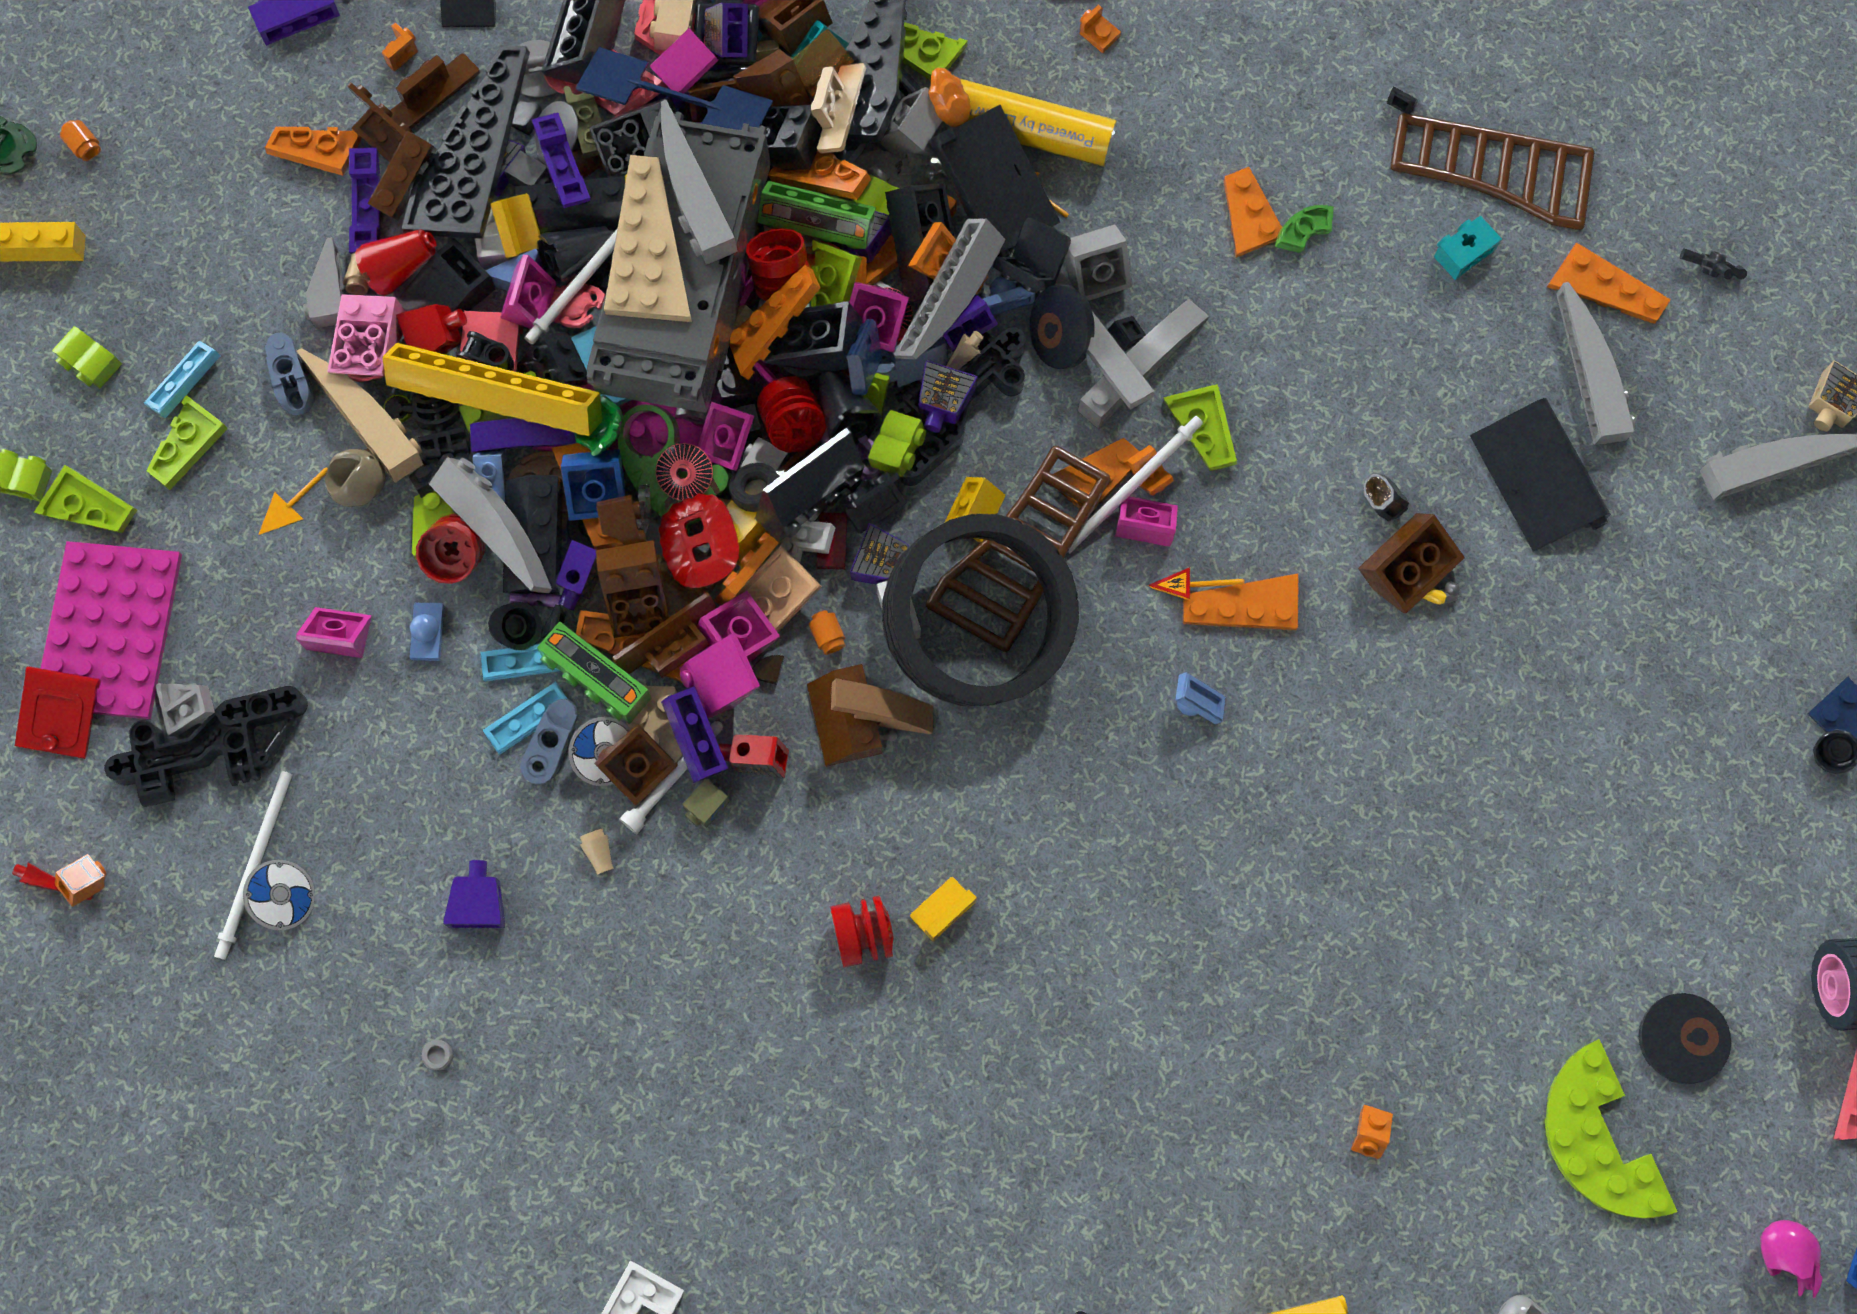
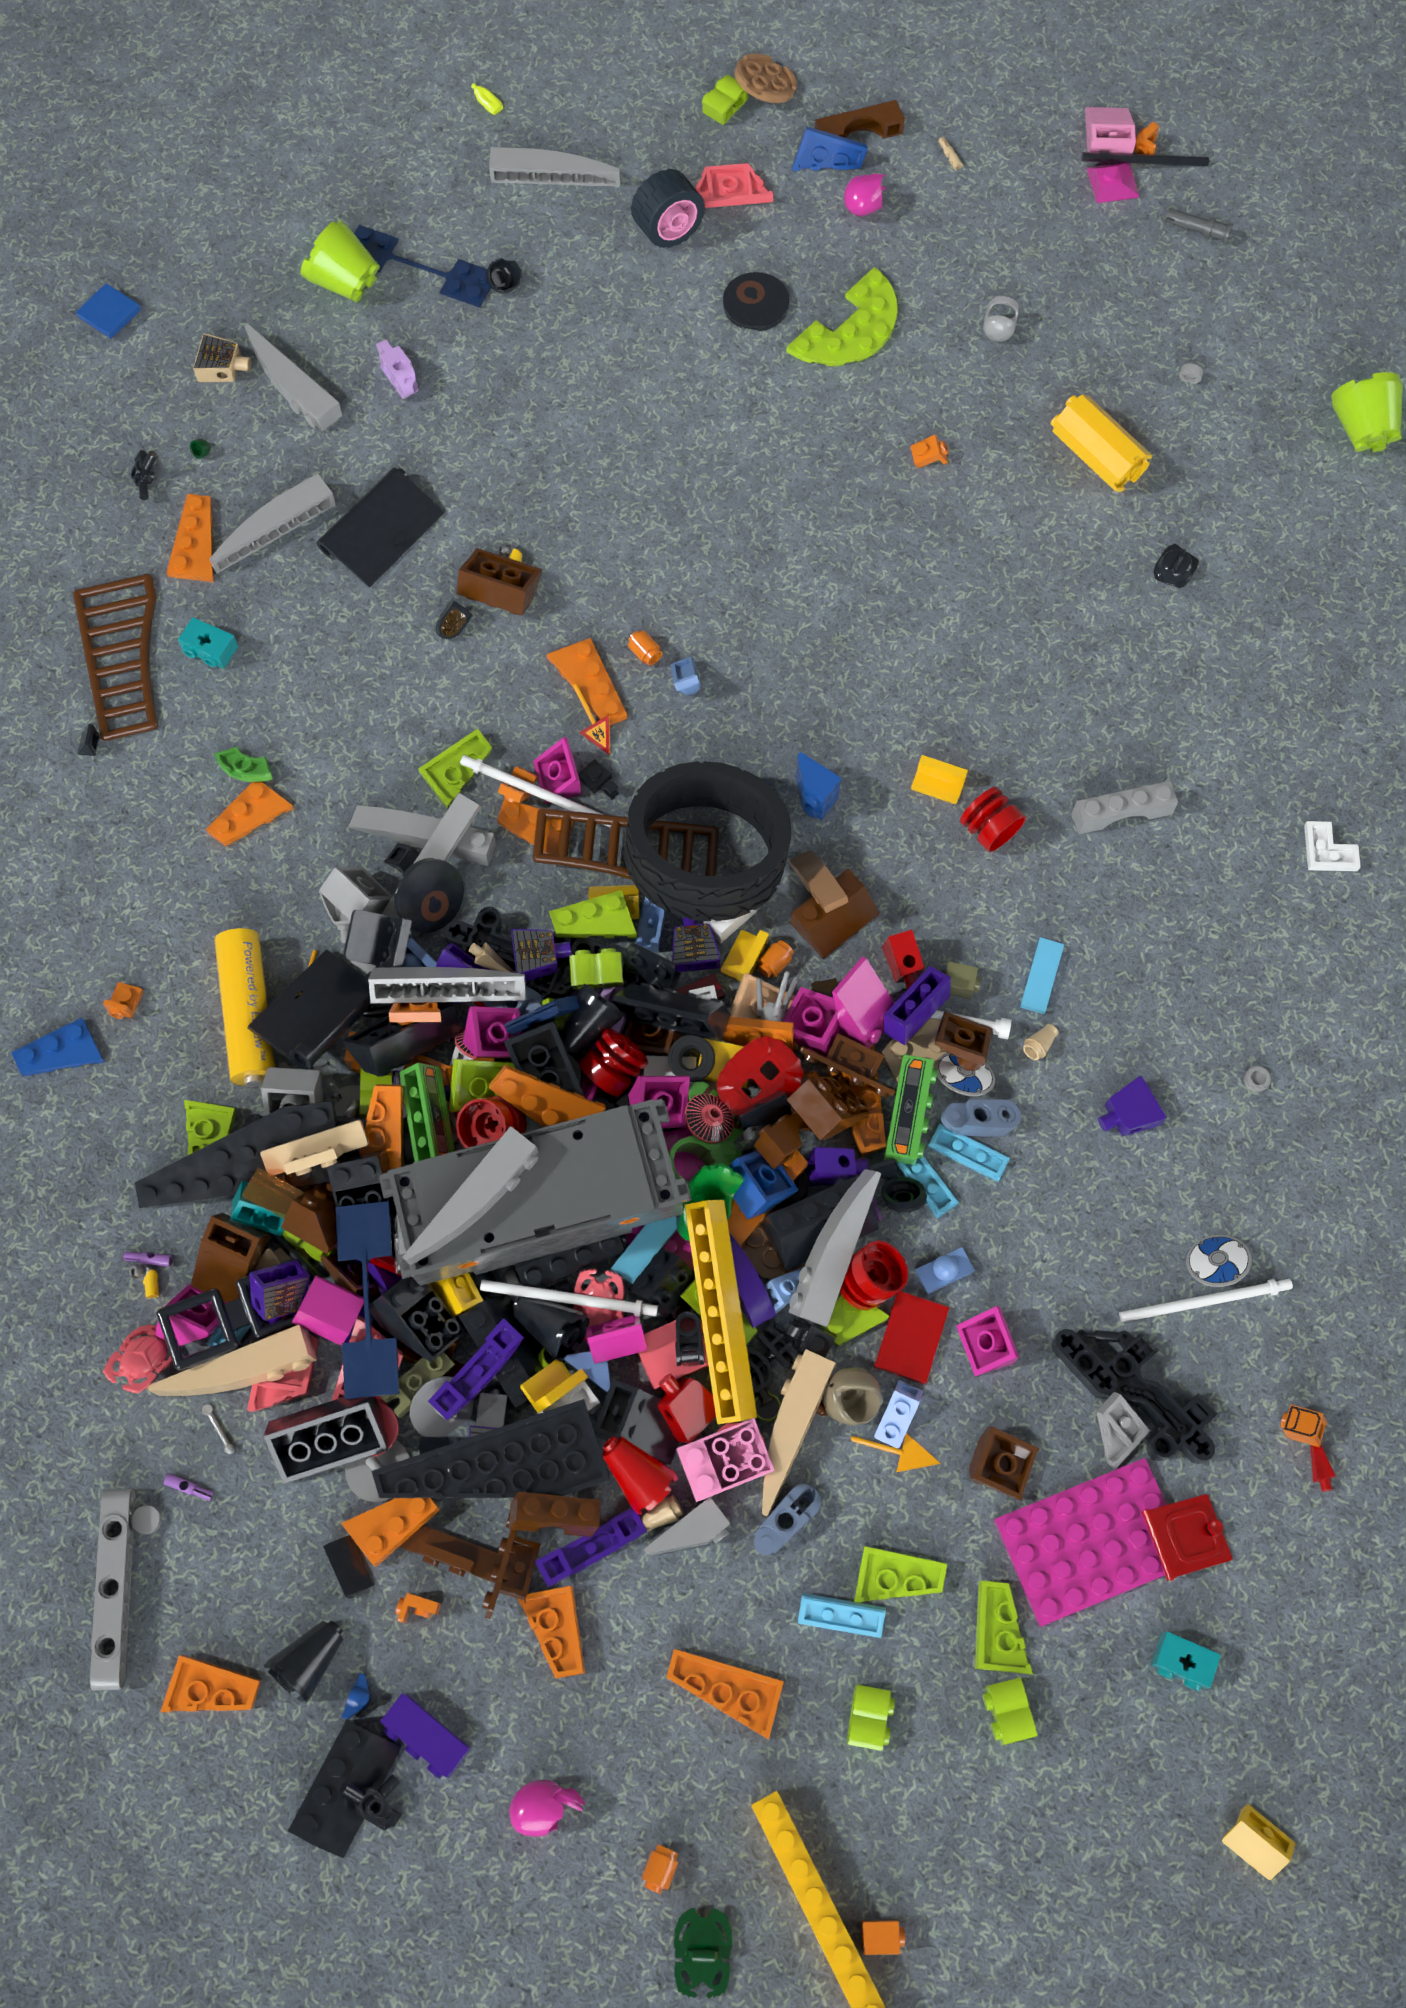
camera: 115 degrees left, 5 degrees down
(175, 265) = (734, 1691): none -> orange wing
(181, 62) = (537, 1807): none -> dark pink helmet
(220, 581) = (1002, 1462): none -> reddish brown slope
(322, 519) = (898, 1414): none -> light blue bracket
(383, 568) = (911, 1337): none -> red tile
(477, 47) = (389, 1525): none -> orange wing
(645, 261) = (559, 1202): tan wing -> none
(663, 524) = (764, 1111): none -> black slope
(668, 895) = (1042, 975): none -> medium azure tile
(763, 590) = (775, 1011): none -> light grey plant
(805, 1090) = (1146, 801): none -> light grey arch
(849, 607) = (745, 954): none -> yellow panel
(918, 523) = (650, 926): none -> medium blue hinge
(949, 98) = (261, 1067): orange arm -> none
(956, 471) = (594, 917): none -> lime wing
(994, 762) = (816, 787): none -> blue slope
(1125, 557) = (597, 778): none -> black plate
(1257, 677) = (645, 647): none -> orange brick
(1727, 335) = (199, 446): none -> dark green hinge
(1748, 578) = (397, 369): none -> lavender piece

